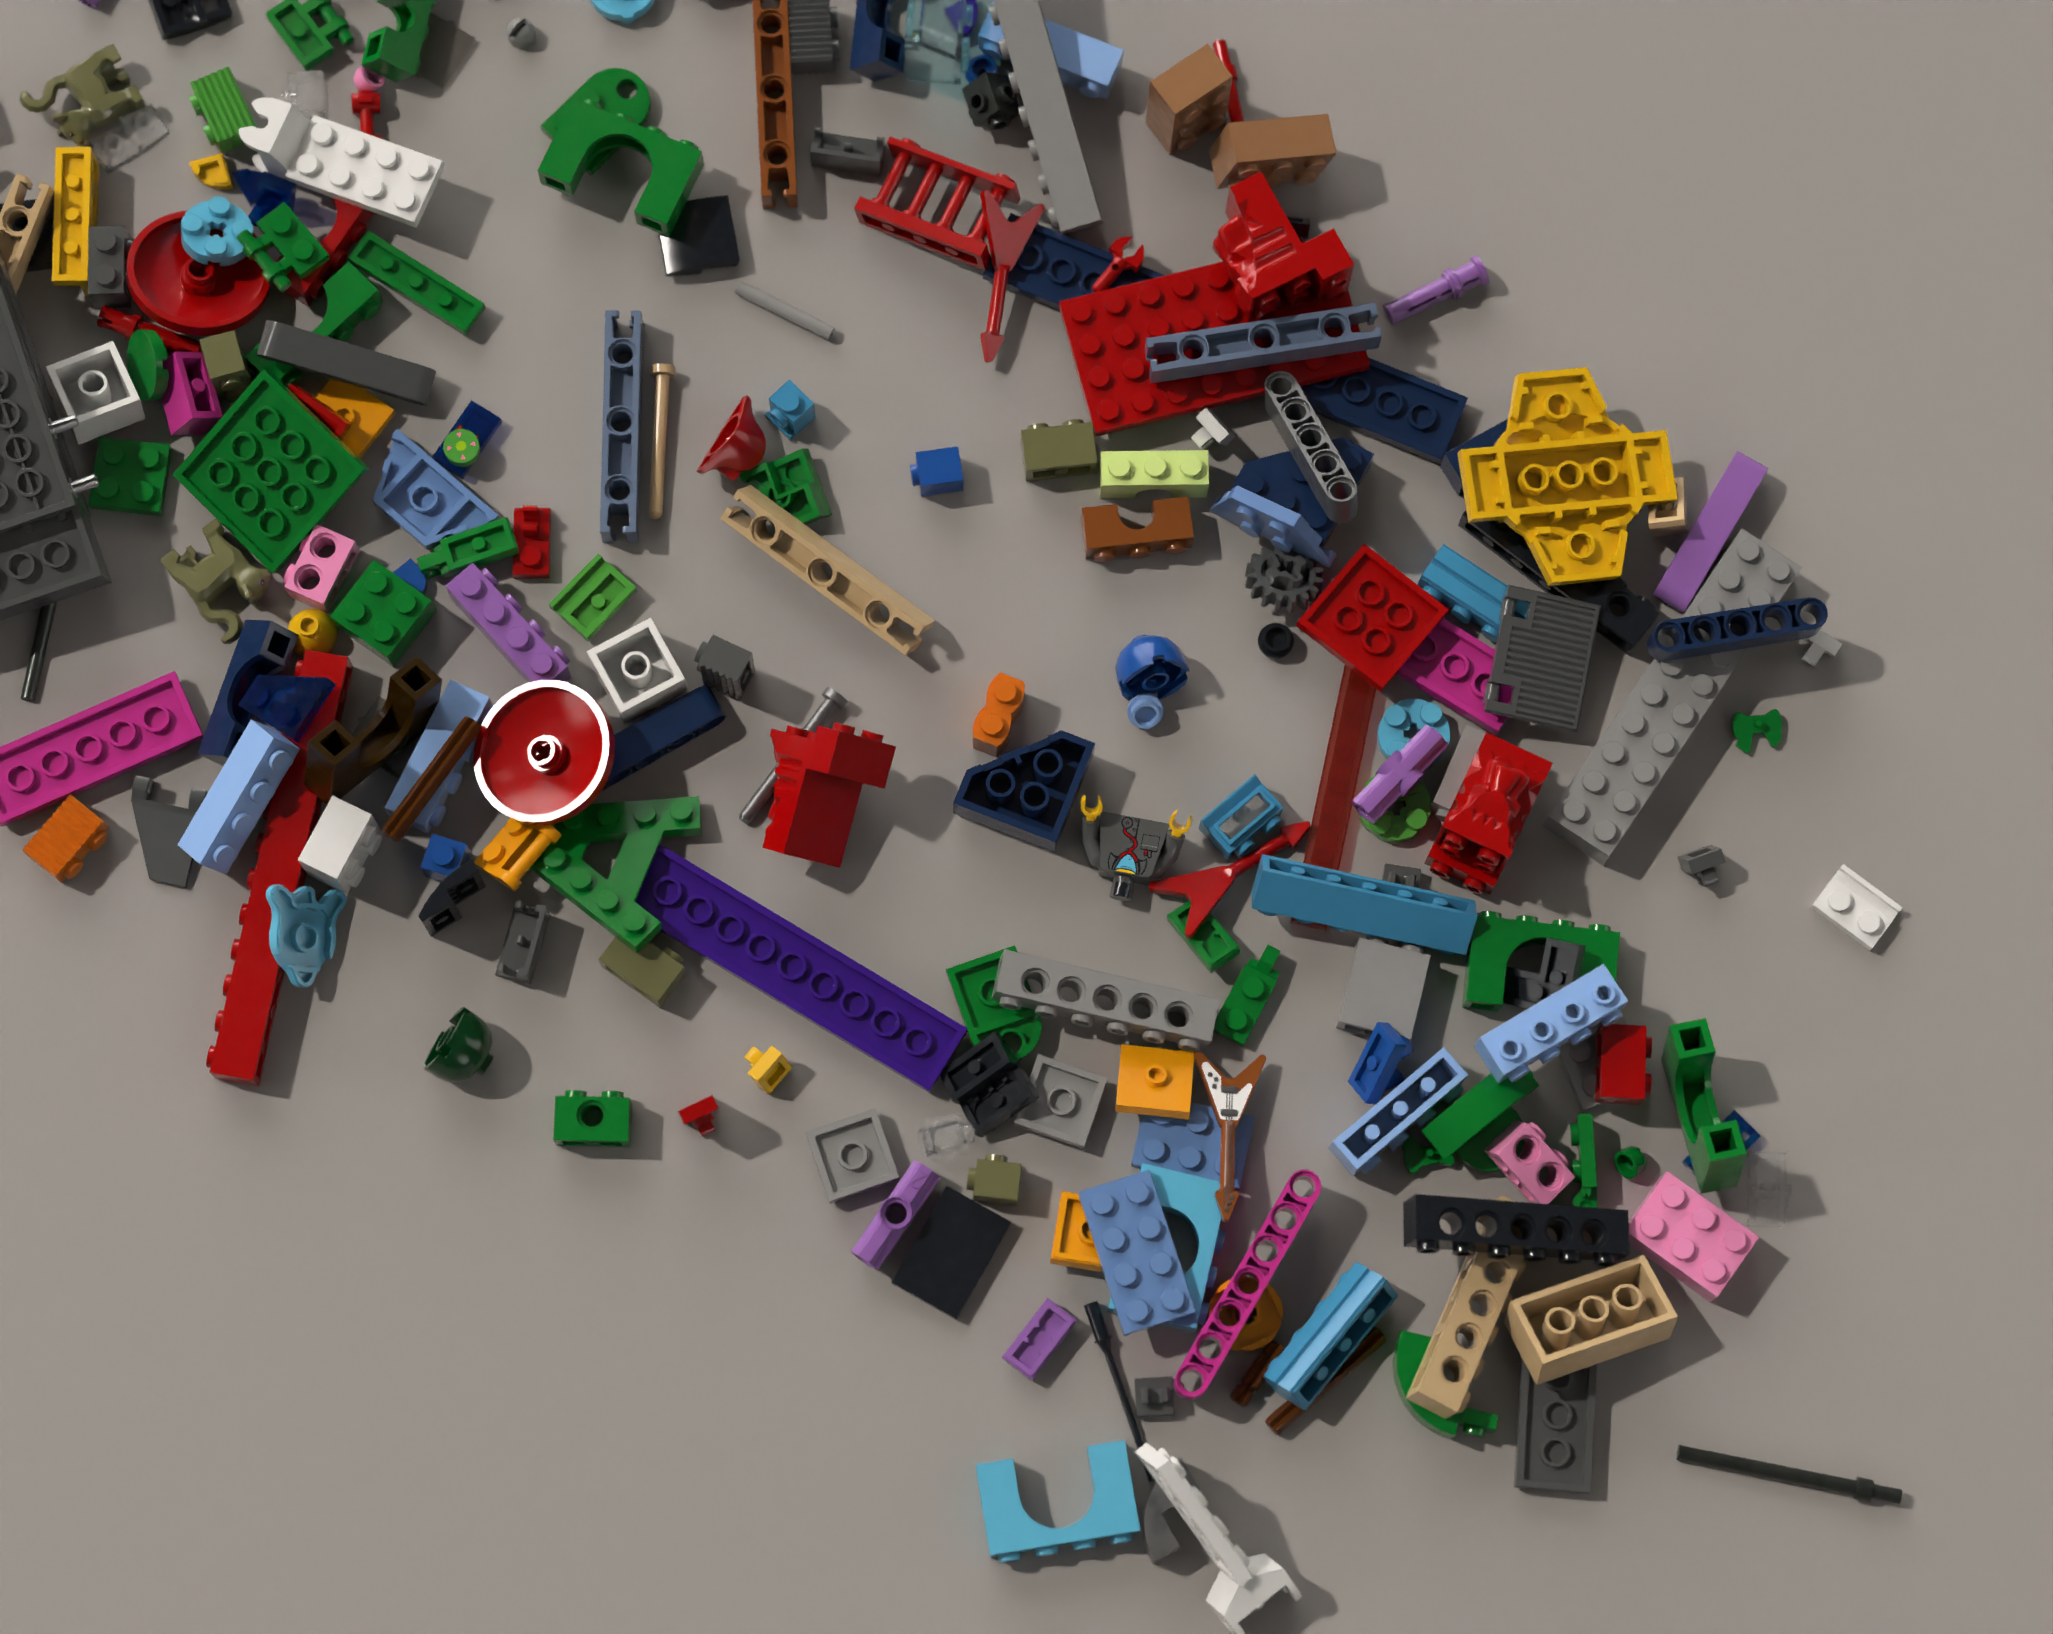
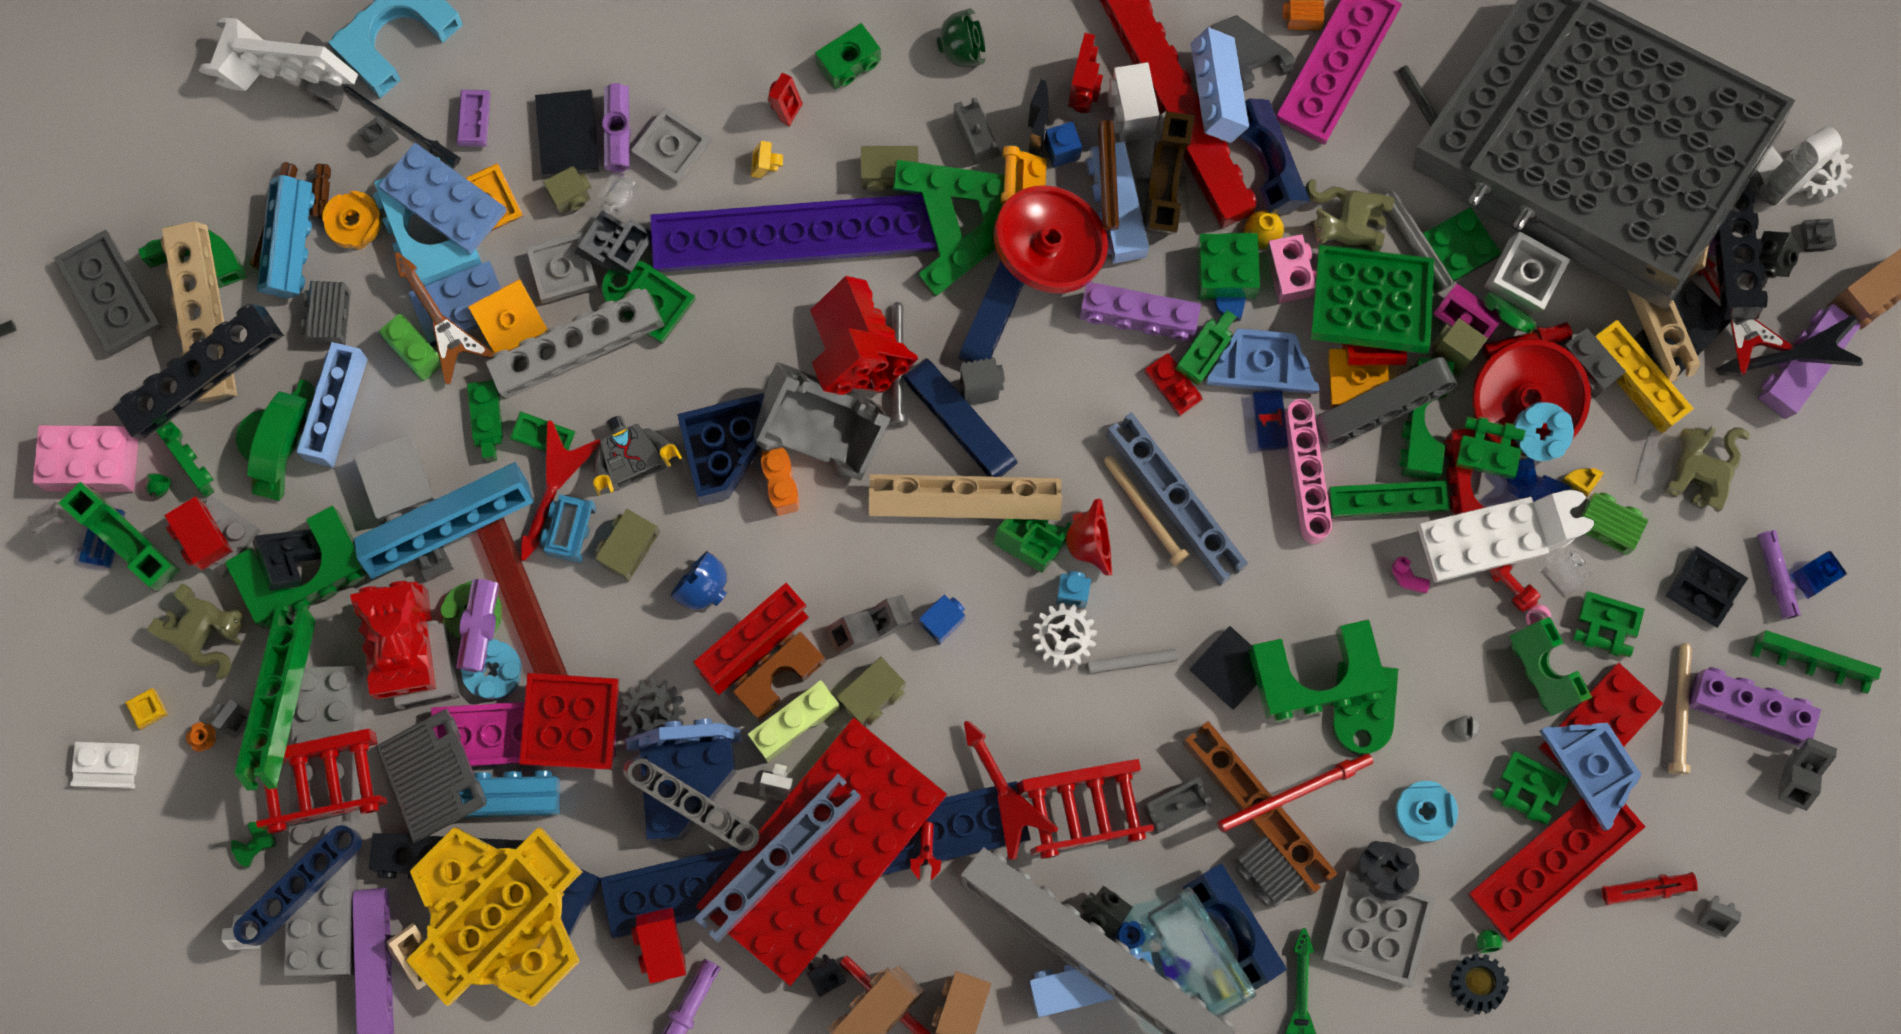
camera: 145 degrees right, 0 degrees up
(169, 511) = (1418, 241): none -> light grey axle
(287, 701) = (1239, 161): clear blue wing -> none
(303, 930) = (1116, 37): medium azure tile -> none
(375, 903) = (1086, 80): none -> red plate
(461, 447) = (1267, 407): bright green tile -> none
(462, 200) = (1406, 578): none -> dark pink arm
(473, 345) = (1307, 485): none -> bright pink beam
(593, 597) = (1104, 374): bright green plate -> none
(637, 670) = (1036, 341): white brick -> none
(668, 73) = (1342, 770): none -> red bar
(771, 650) = (960, 419): none -> dark blue beam
(843, 364) = (1076, 638): none -> white gear
(931, 748) = (820, 423): none -> dark grey windscreen
(1019, 518) = (869, 626): none -> flat silver brick
(1141, 566) = (752, 639): none -> red fence
(1145, 711) = (684, 554): light blue plate -> none
(1195, 760) = (627, 544): none -> olive brick
(1256, 1268) = (364, 239): dark pink beam -> none
(1270, 260) = (815, 916): red brick -> none
(1275, 640) = (630, 668): black plate -> none
(1276, 1120) = (411, 347): none -> bright green brick
(1339, 1224) = (326, 312): none -> dark grey brick
(1378, 1062) = (364, 426): blue tile -> none
(1427, 354) = (660, 945): none -> red brick
(1525, 1169) = (221, 431): bright pink brick -> none
(1551, 1024) = (255, 513): light blue brick -> none
(1590, 1319) = (114, 353): tan brick -> none
(1627, 738) = (327, 749): none -> red fence
(1661, 798) = (275, 698): none -> green piece
(1690, 976) = (195, 627): none -> olive animal
(1741, 876) = (207, 742): none -> orange plate
(1781, 936) = (146, 708): none -> yellow tile

